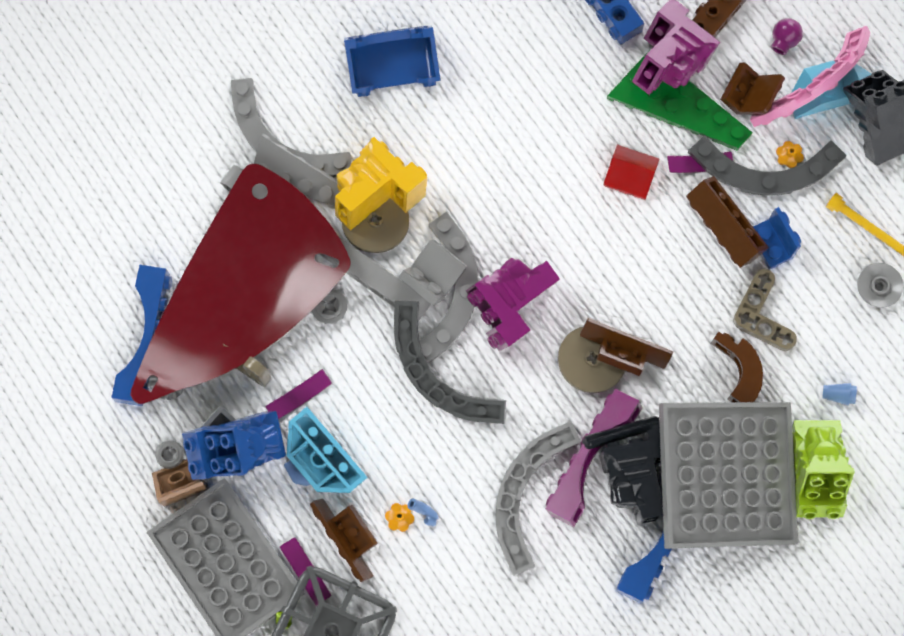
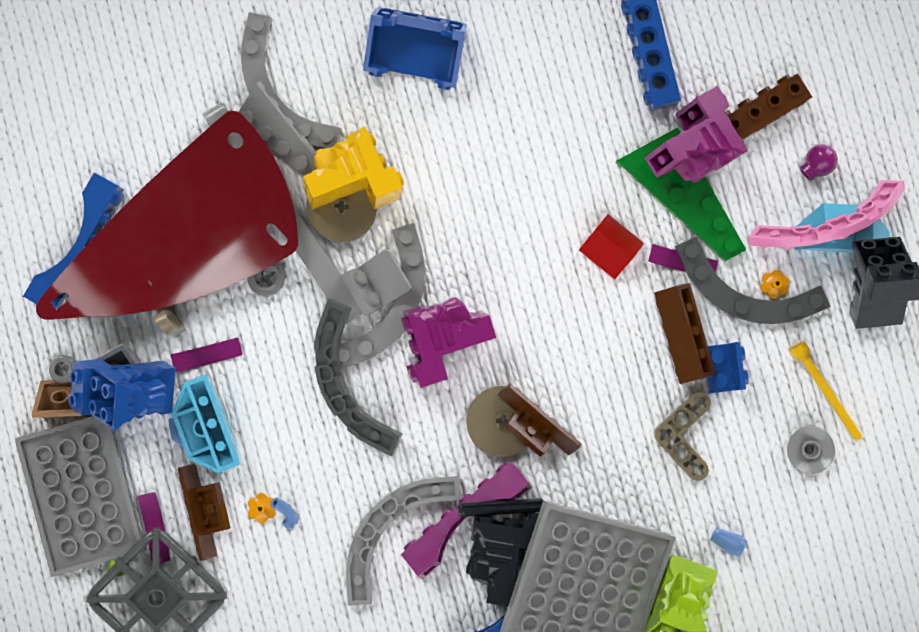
camera: 15 degrees right, 10 degrees up
(748, 366) = (650, 488): reddish brown arch -> none
(751, 92) = (761, 208): reddish brown bracket -> none

